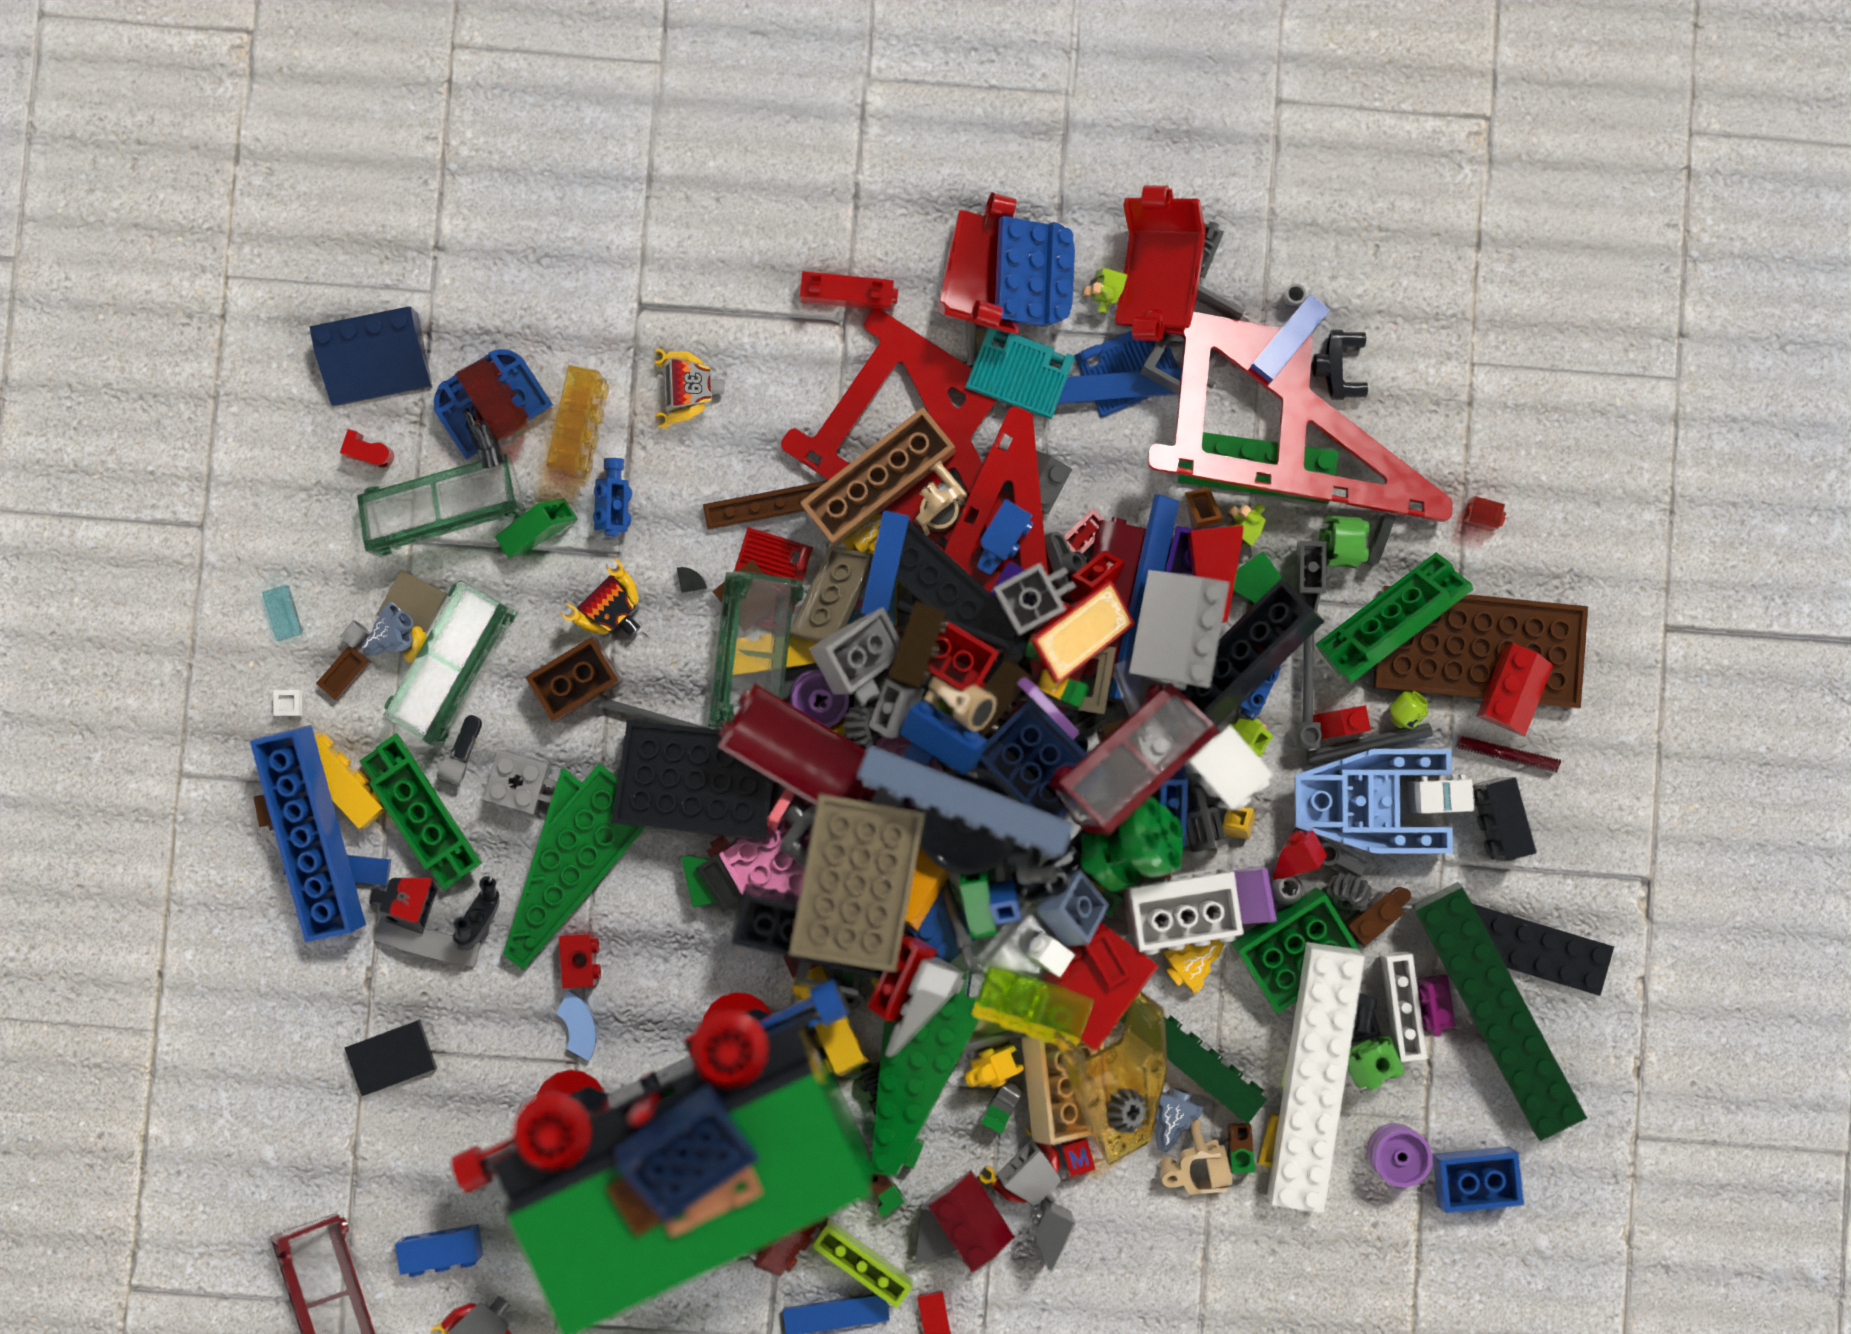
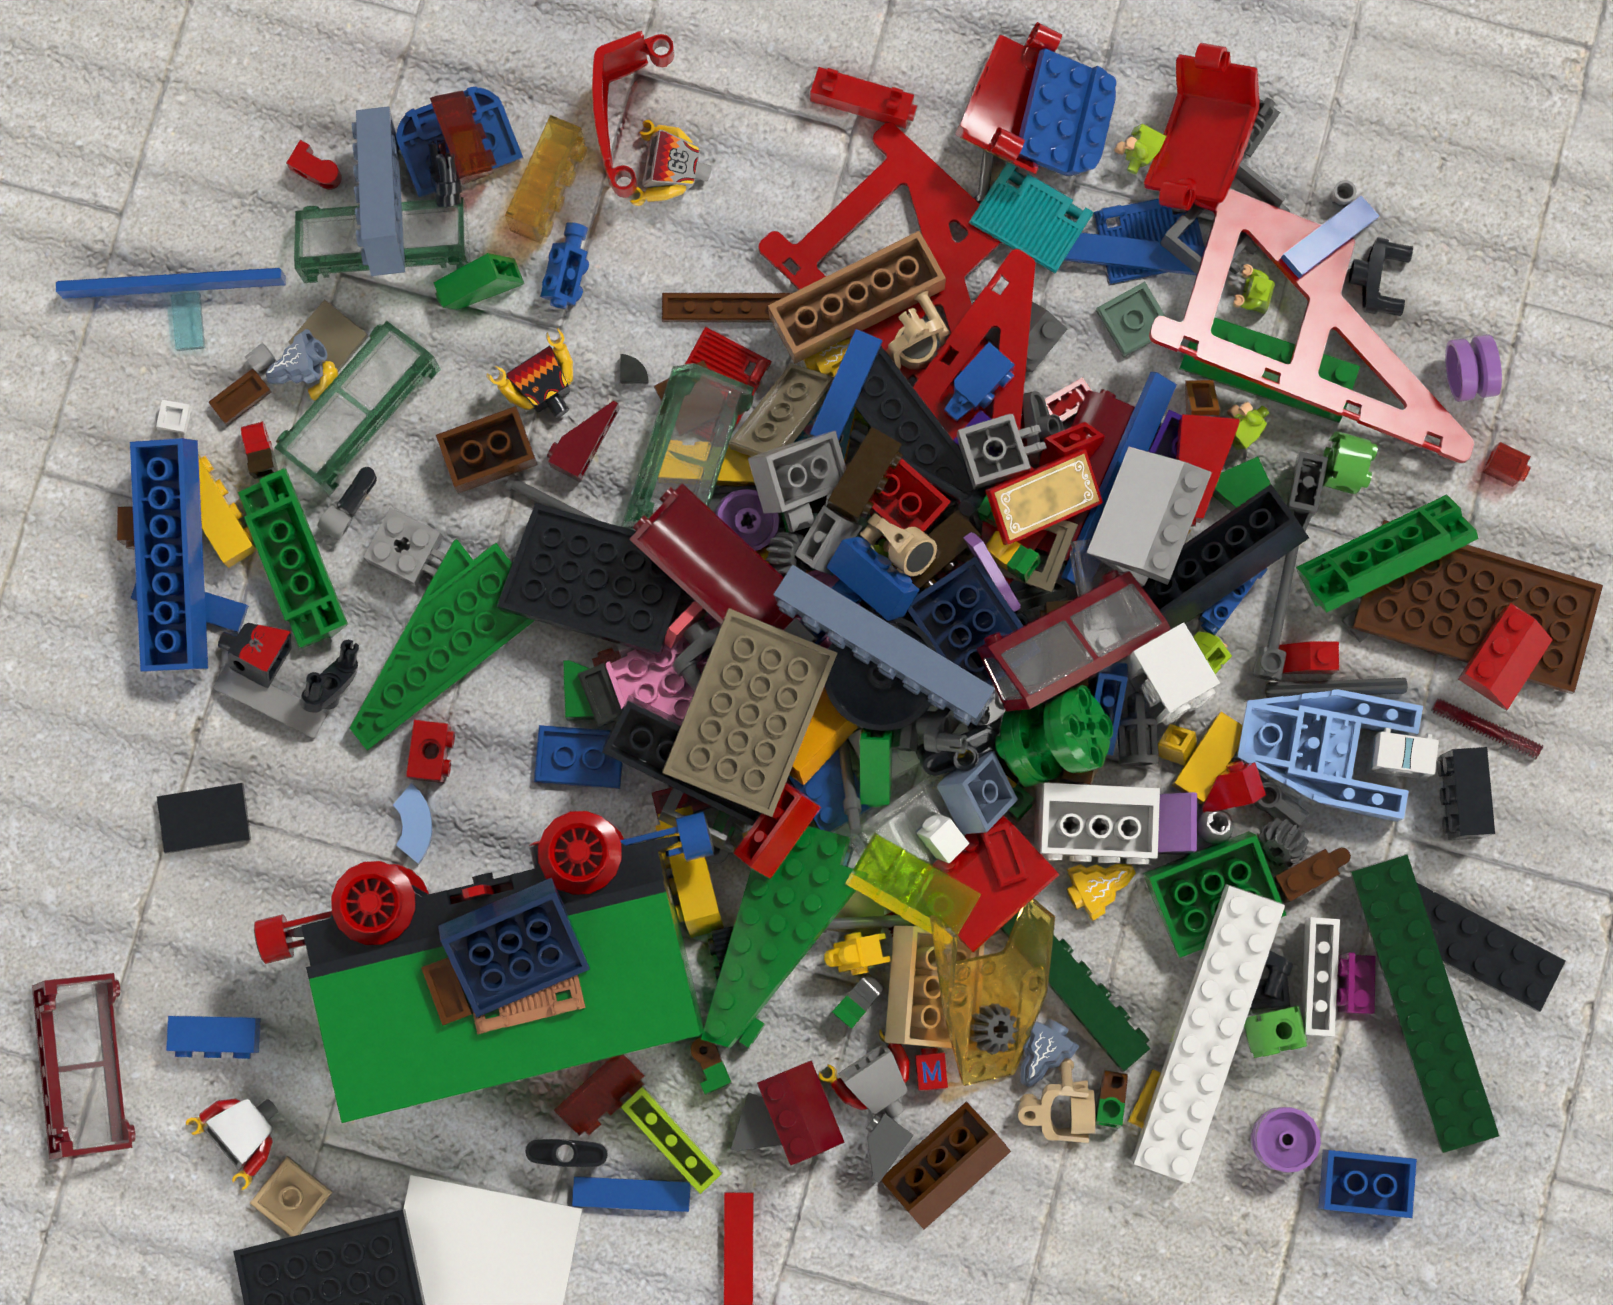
camera: 15 degrees right, 5 degrees down
(258, 582) = (171, 283): none -> blue tile
(370, 718) = (258, 450): none -> leg
(371, 356) = (339, 68): dark blue slope -> none
(427, 466) = (378, 191): none -> sand blue brick
(612, 306) = (611, 63): none -> red panel
(657, 658) = (578, 447): none -> dark red slope
(707, 938) = (575, 758): none -> blue tile
(789, 1293) = (585, 1153): none -> black connector
(931, 990) = (808, 847): light grey wedge -> none
(1004, 902) = (904, 770): blue brick -> none
(1106, 1235) = (945, 1165): none -> reddish brown slope
(1127, 445) = (1130, 318): none -> sand green tile
(1233, 398) = (1257, 291): none -> lime piece
(1270, 829) = (1210, 757): none -> yellow brick
(1380, 539) = (1387, 470): pearl dark grey tile -> none
(1408, 710) = (1385, 658): lime head -> none
(1440, 433) = (1473, 368): none -> medium lavender wheel

